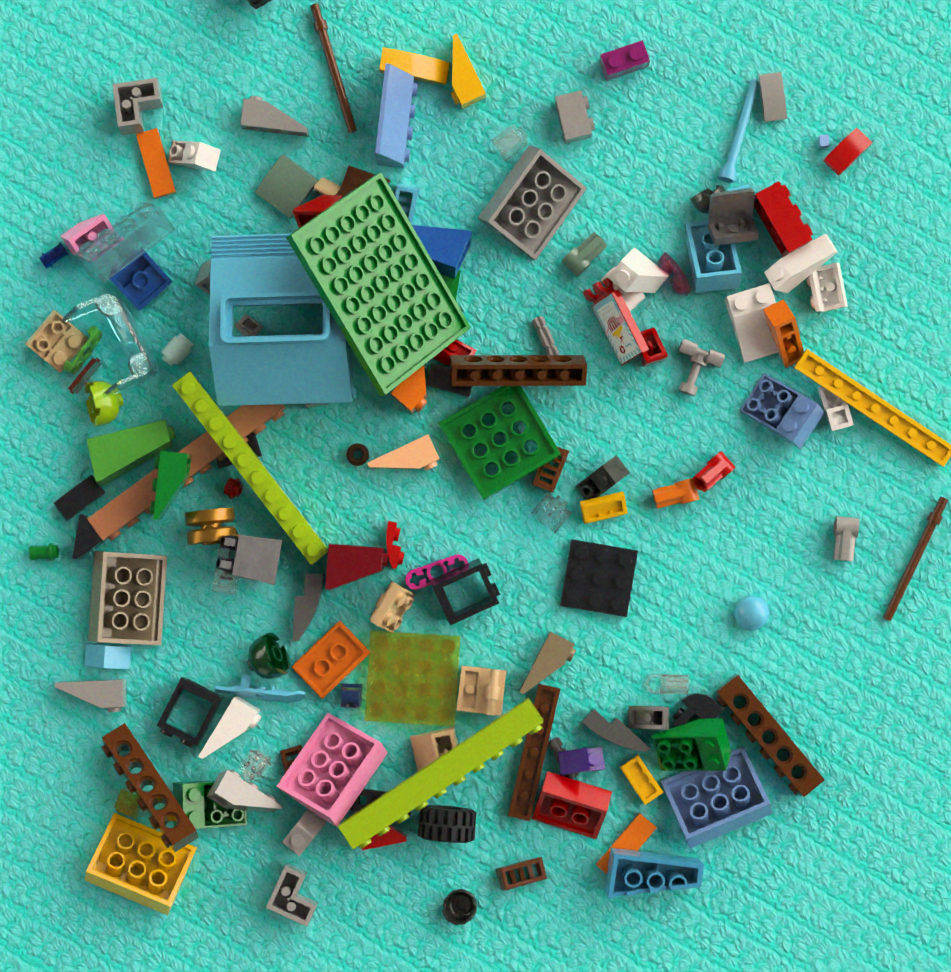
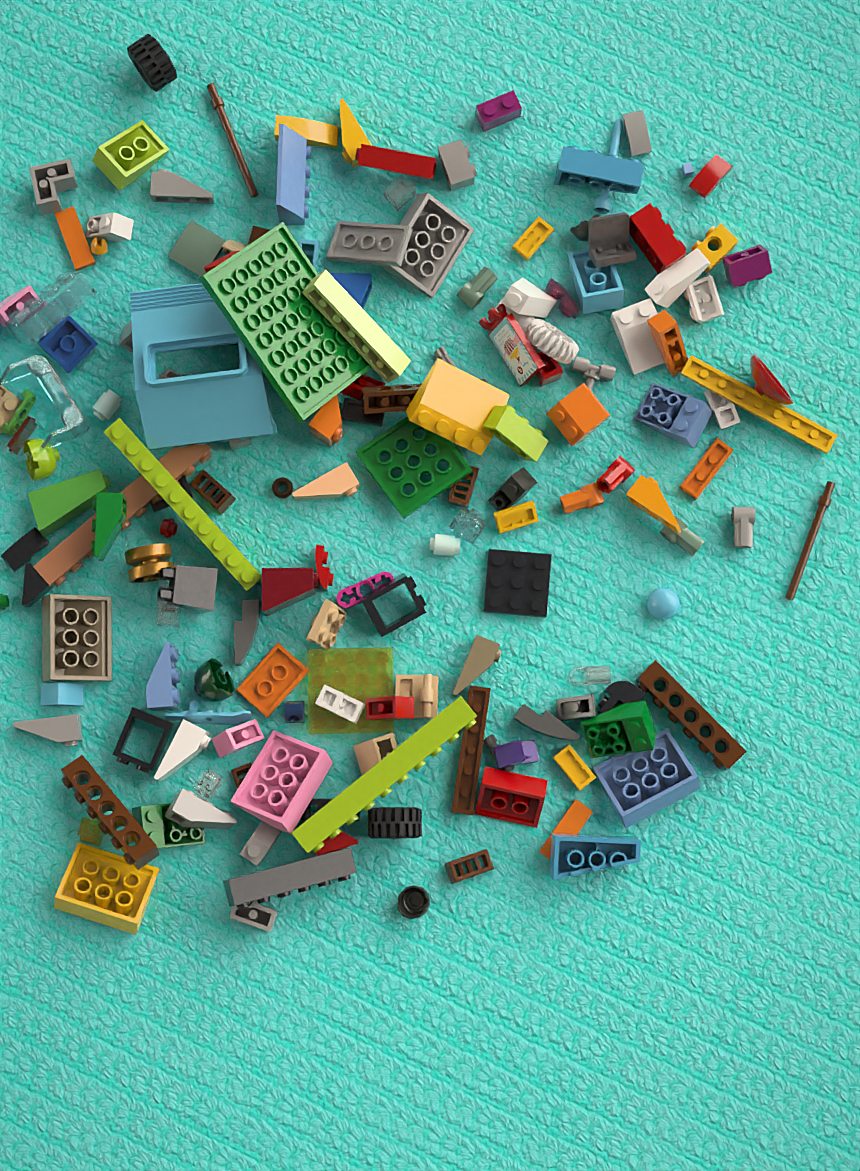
camera: 10 degrees left, 5 degrees down
(181, 175) = (99, 246): none -> light orange hinge
(214, 658) = (161, 686): none -> medium blue slope
(222, 76) = (129, 154): none -> lime slope
(289, 718) = (237, 738): none -> bright pink slope
(297, 464) = (222, 500): none -> reddish brown slope
(332, 871) = (289, 877): none -> brick
(400, 692) = (340, 704): none -> white slope
(450, 290) = (356, 326): none -> yellowish green brick
(452, 702) = (390, 708): none -> red slope
(472, 198) = (369, 243): none -> light grey tile
(509, 110) = (396, 161): none -> red slope
(525, 531) = (445, 545): none -> light aqua brick
(551, 387) = (456, 406): none -> yellow slope
(611, 418) = (516, 432): none -> lime brick
(649, 204) = (533, 238): none -> yellow plate
(659, 322) = (552, 341): none -> white gear
(680, 404) = (578, 414): none -> orange slope
(727, 138) = (598, 170): none -> dark azure wedge
(747, 499) = (648, 497): none -> light orange slope
(774, 539) = (686, 539): none -> sand green piece
(812, 471) = (706, 468): none -> orange tile
(853, 222) = (722, 239): none -> yellow brick
(878, 255) = (747, 265): none -> magenta brick
(887, 386) = (767, 383): none -> red dish

